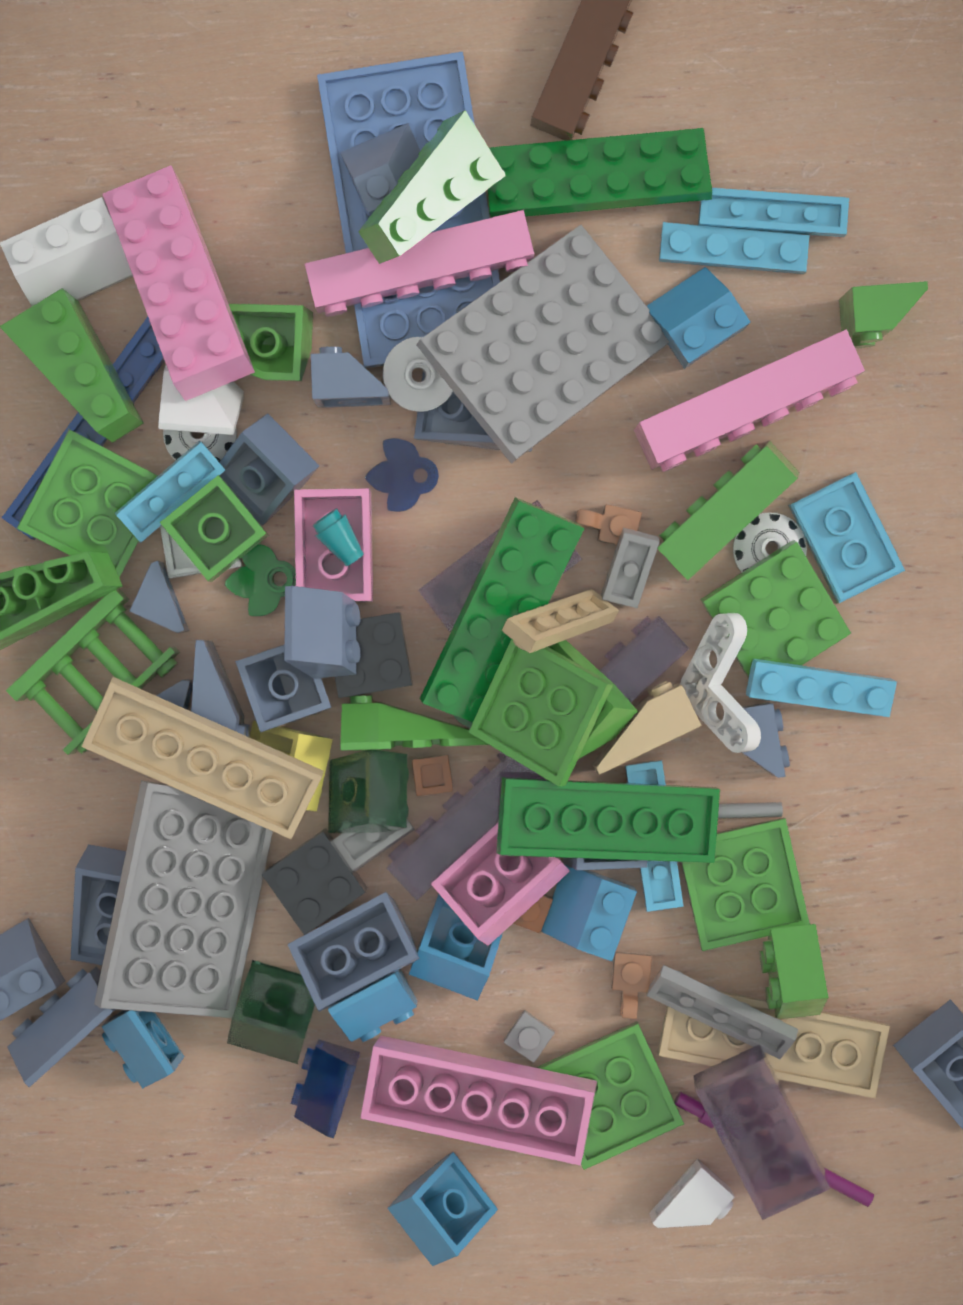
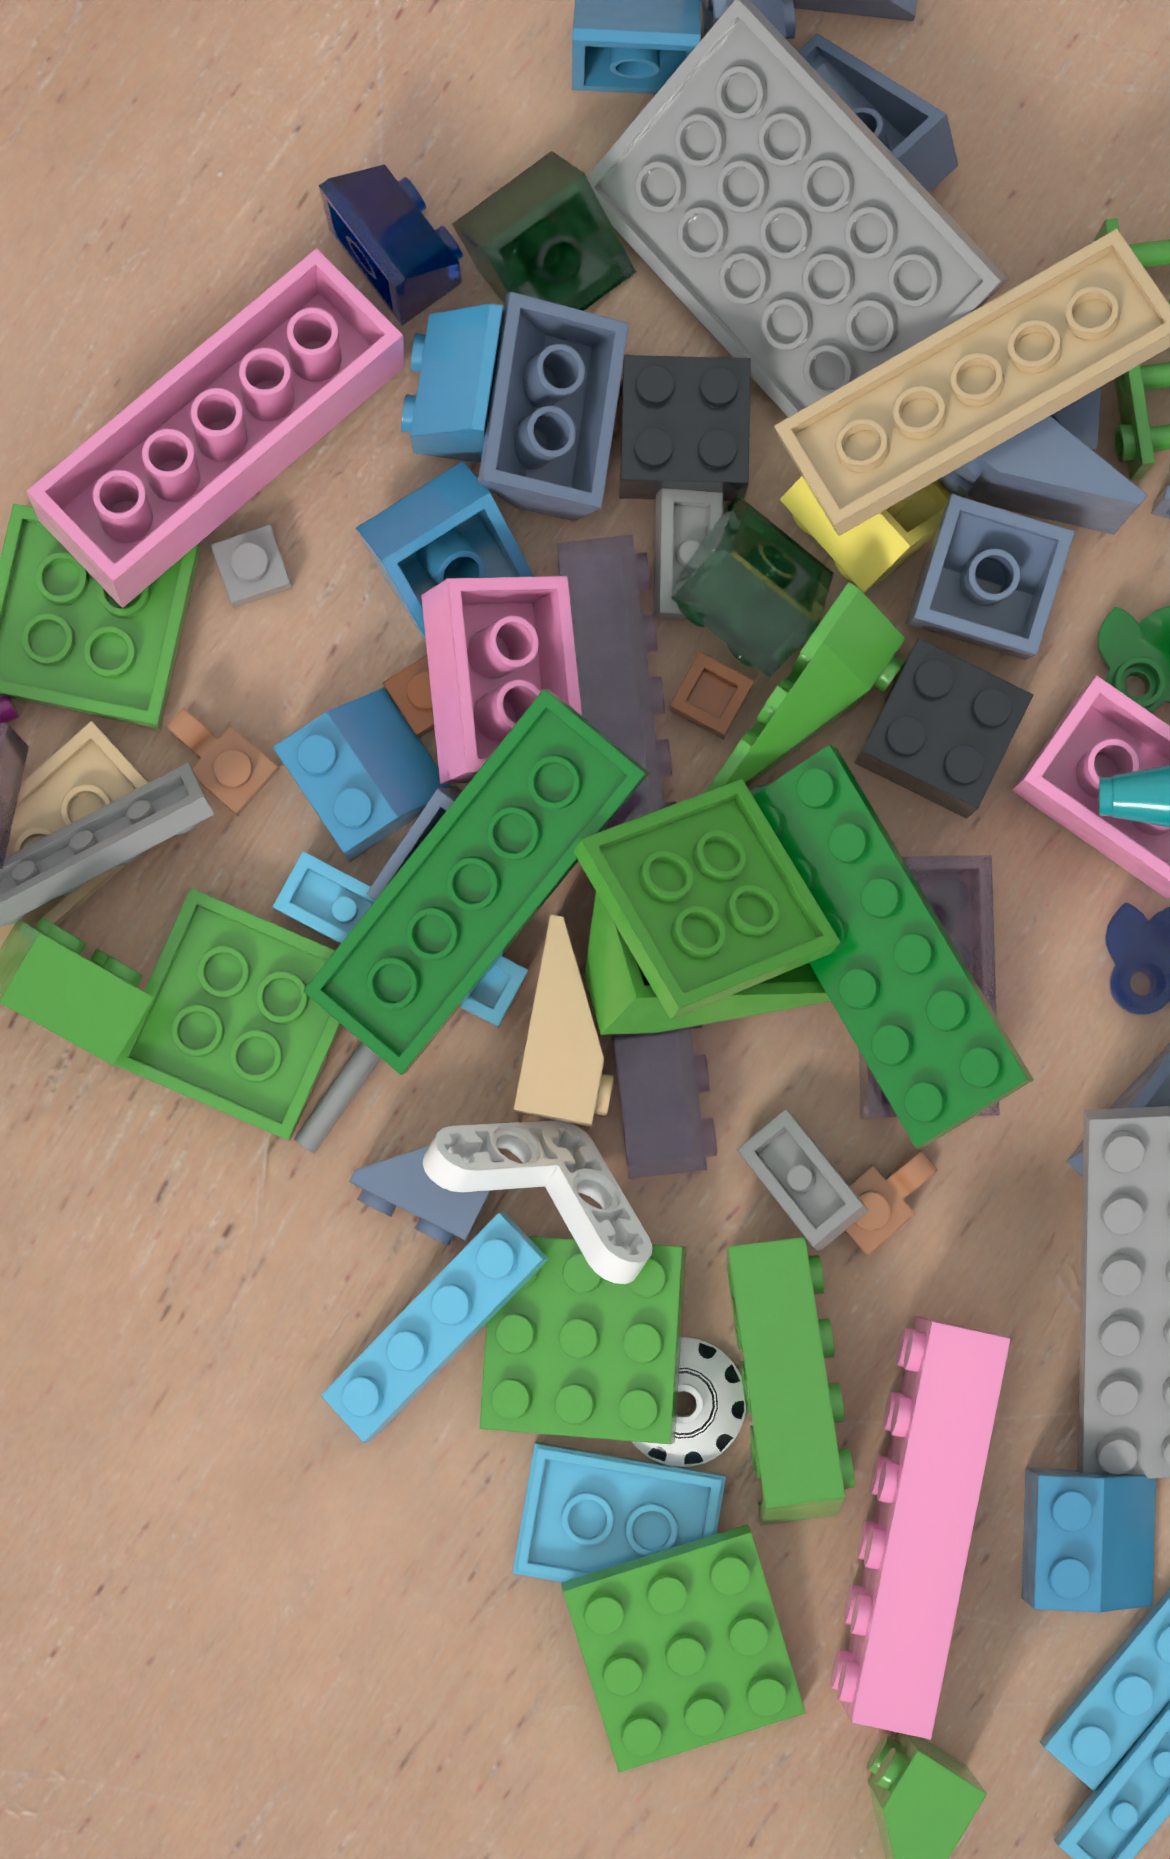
camera: 120 degrees right, 5 degrees down
(321, 632) = (1037, 670): sand blue slope -> none
(443, 1210) = (104, 276): dark azure slope -> none
(559, 621) = (808, 1017): tan plate -> none
(882, 468) = (683, 1648): none -> bright green plate

